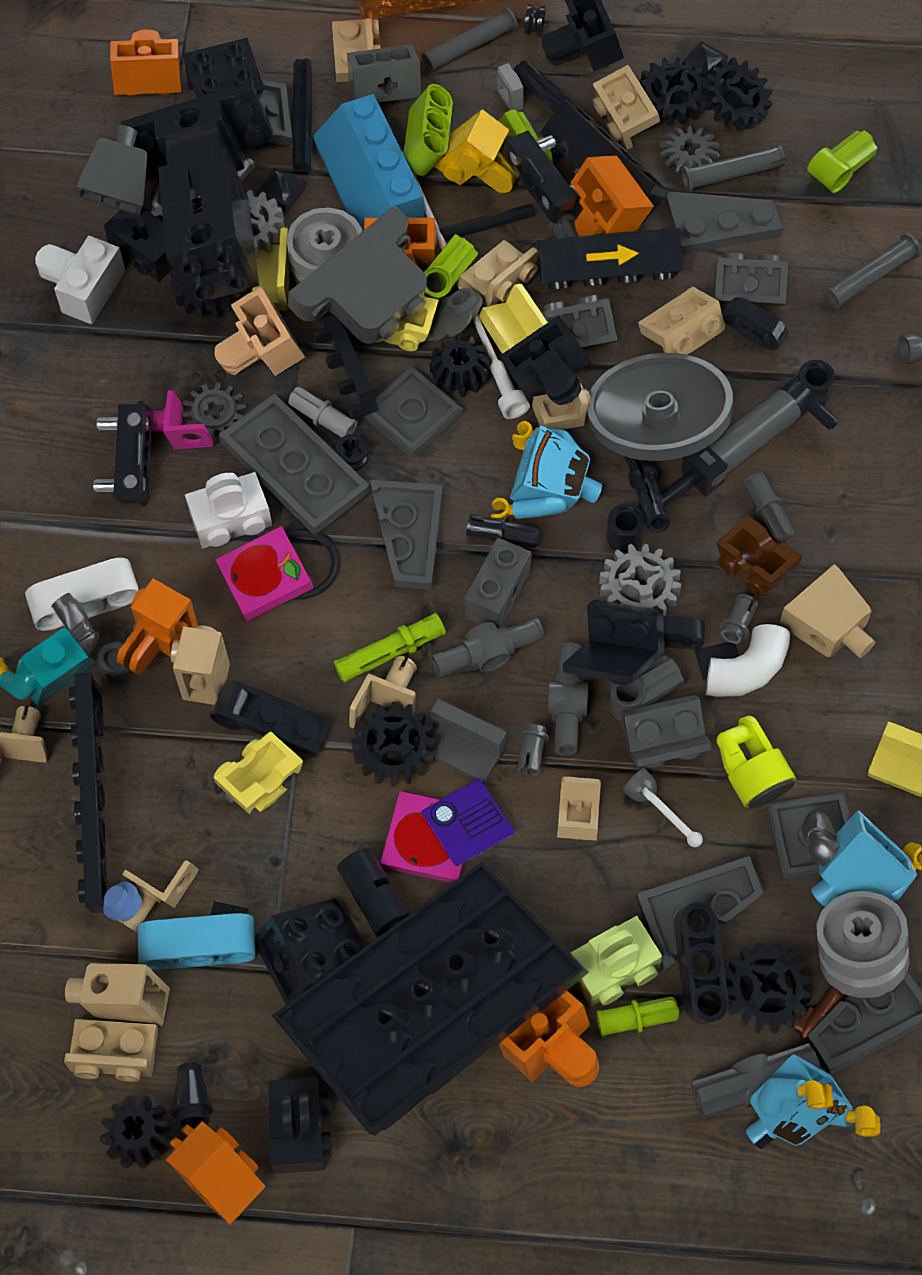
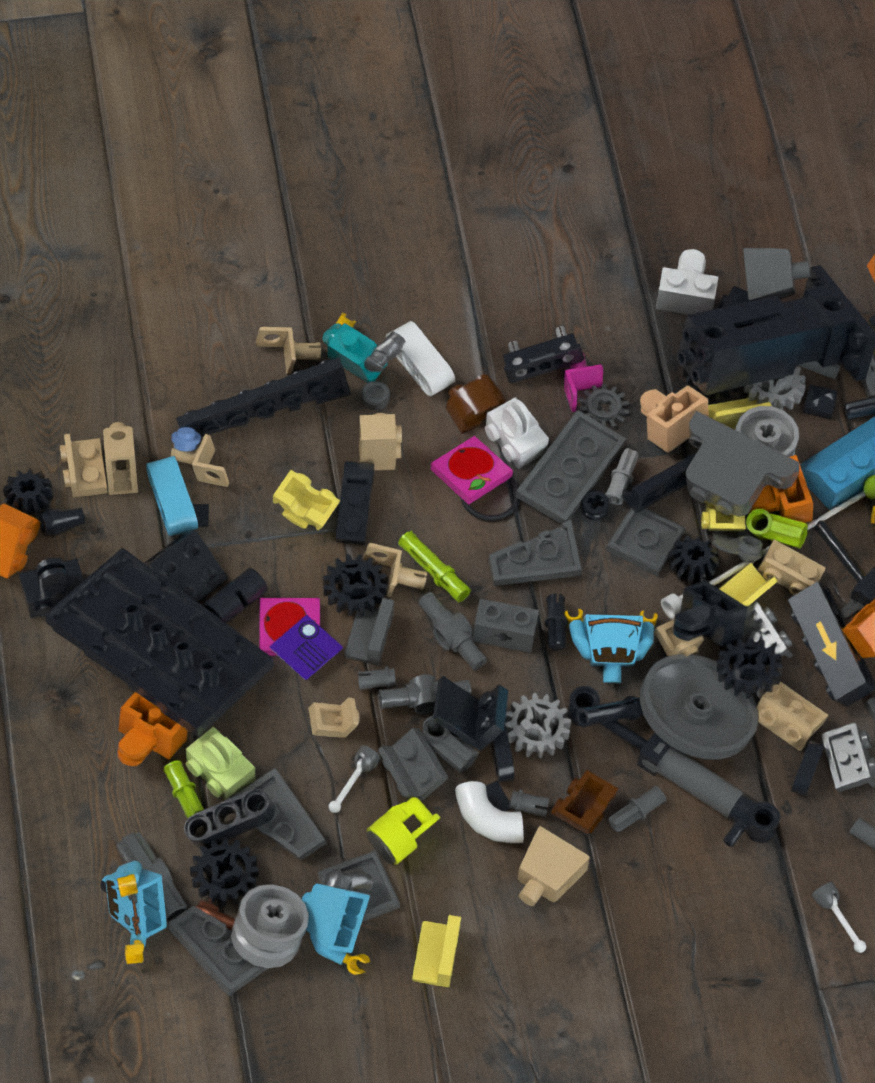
camera: 70 degrees right, 5 degrees down
(159, 621) = (406, 402): orange brick -> none
(170, 547) = (473, 401): none -> reddish brown cylinder
(636, 329) = (749, 668): none -> black gear

